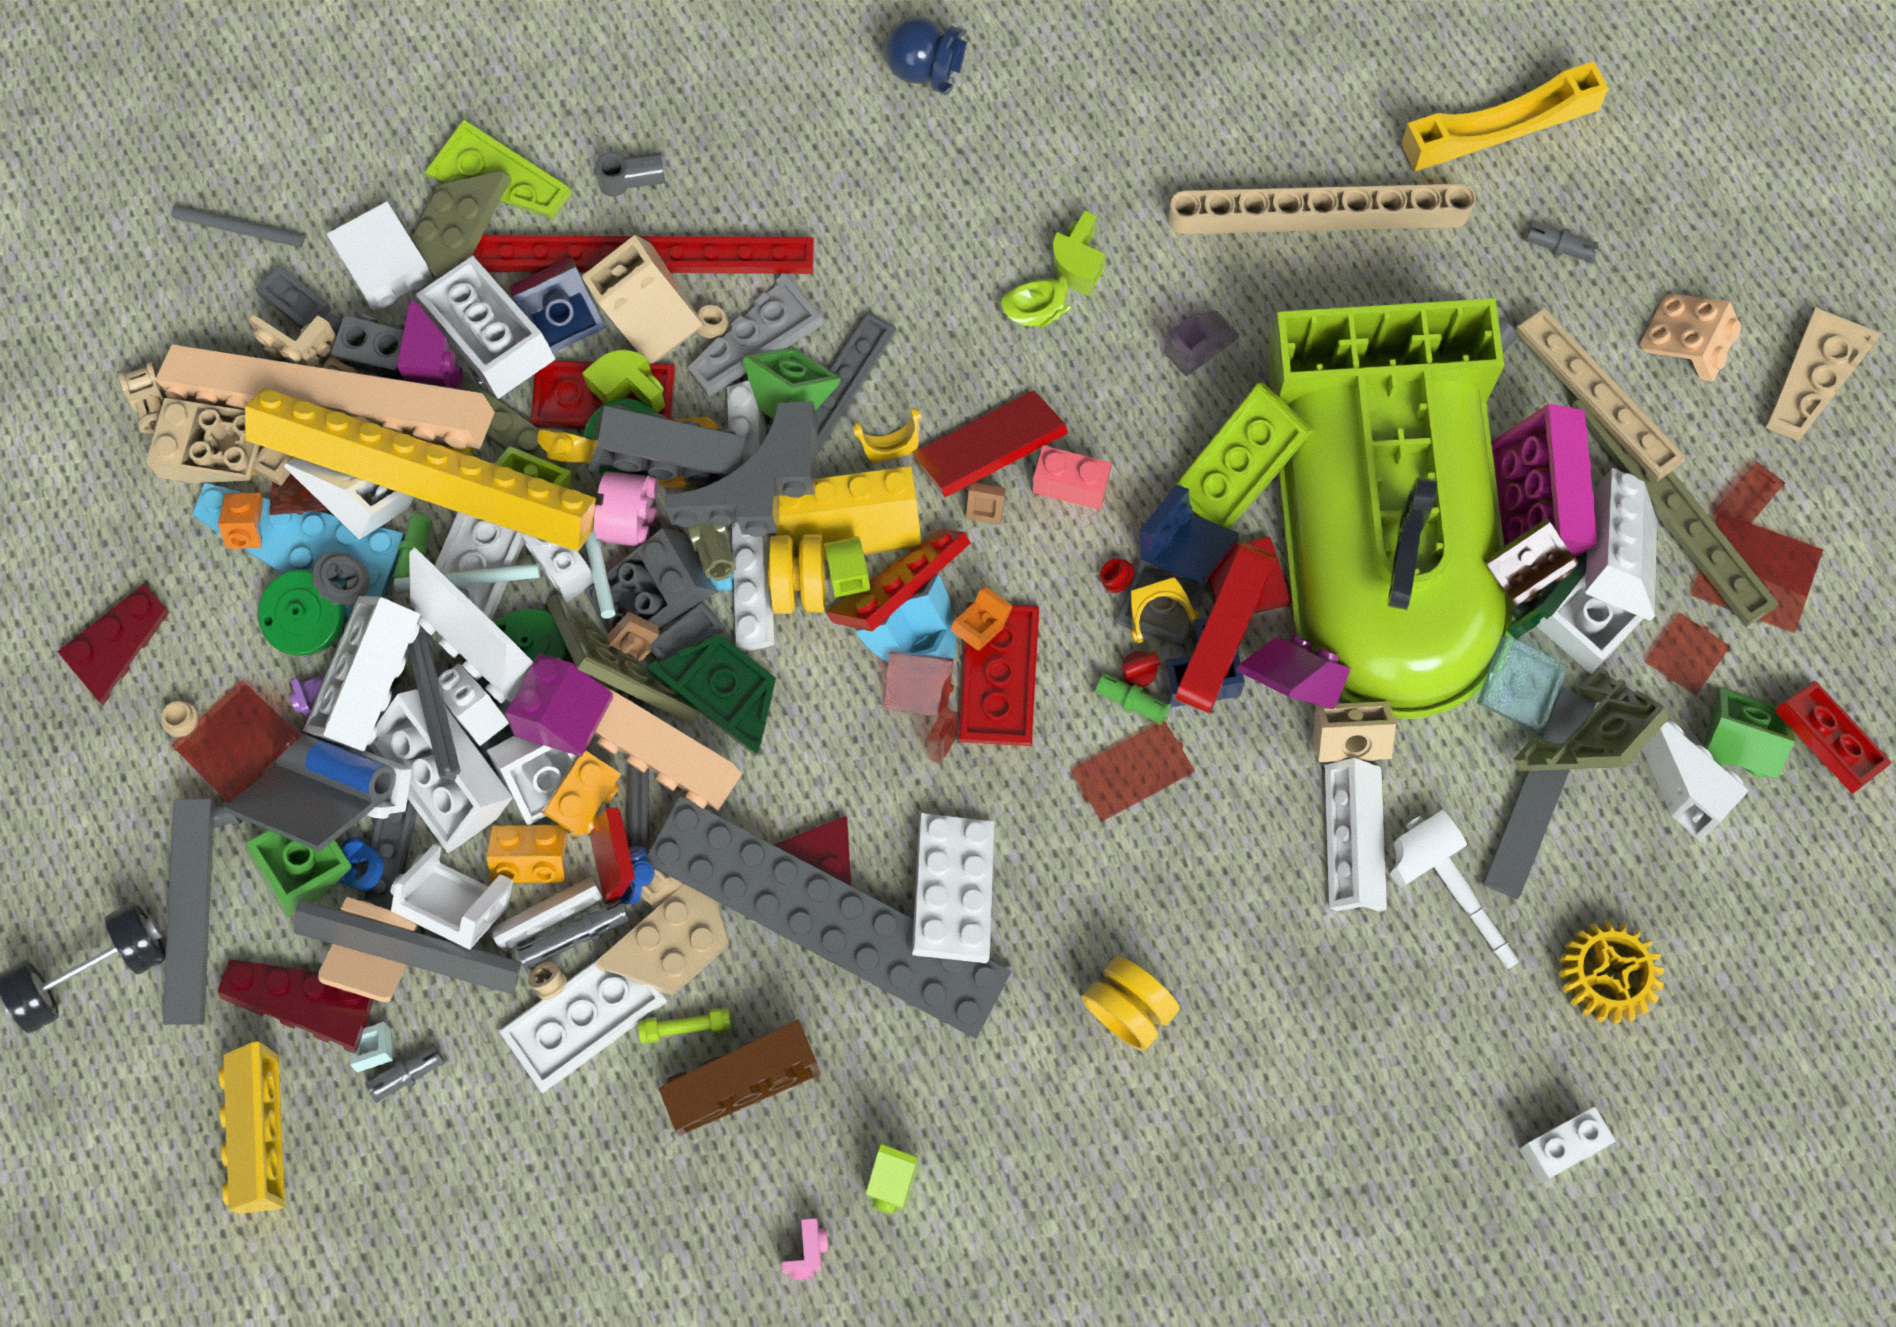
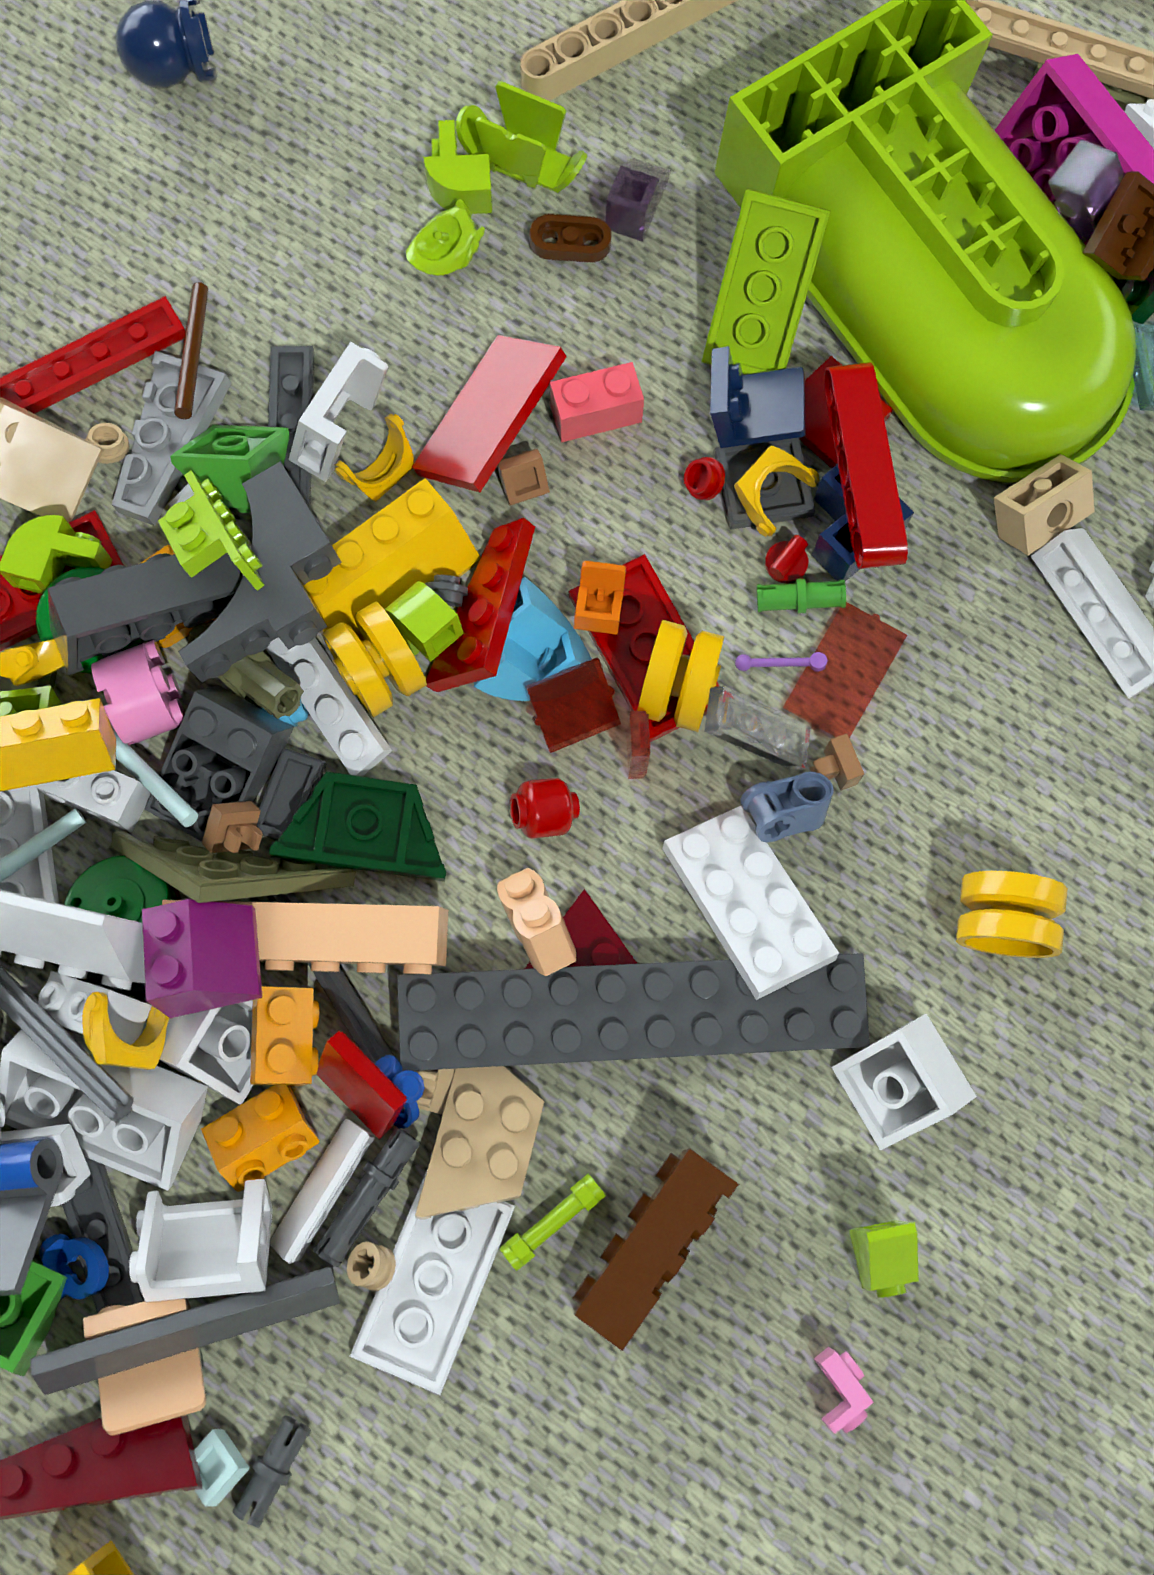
camera: 35 degrees left, 5 degrees up
(465, 733) = (110, 1049): none -> yellow helmet
(732, 422) = (206, 530): none -> lime bracket
(796, 815) = (536, 921): none -> light nougat brick
(807, 286) = (191, 351): none -> reddish brown bar
(851, 394) = (317, 439): none -> white panel
(853, 743) = (544, 808): none -> red head
(879, 554) = (449, 589): none -> dark grey plate
(984, 1075) = (904, 1082): none -> white slope
(999, 703) = (681, 675): none -> yellow wheel
(1025, 841) = (790, 805): none -> sand blue piece
(1033, 772) = (757, 728): none -> clear plate
(1079, 831) = (840, 763): none -> medium nougat tile
(1115, 751) = (817, 662): none -> medium lavender hinge
(1123, 248) = (527, 144): none -> lime piece
(1134, 345) = (571, 235): none -> reddish brown plate
(1298, 670) = (961, 469): magenta slope -> none
(1412, 521) = (1011, 244): black beam -> none
(1518, 509) = (1086, 186): none -> clear purple slope

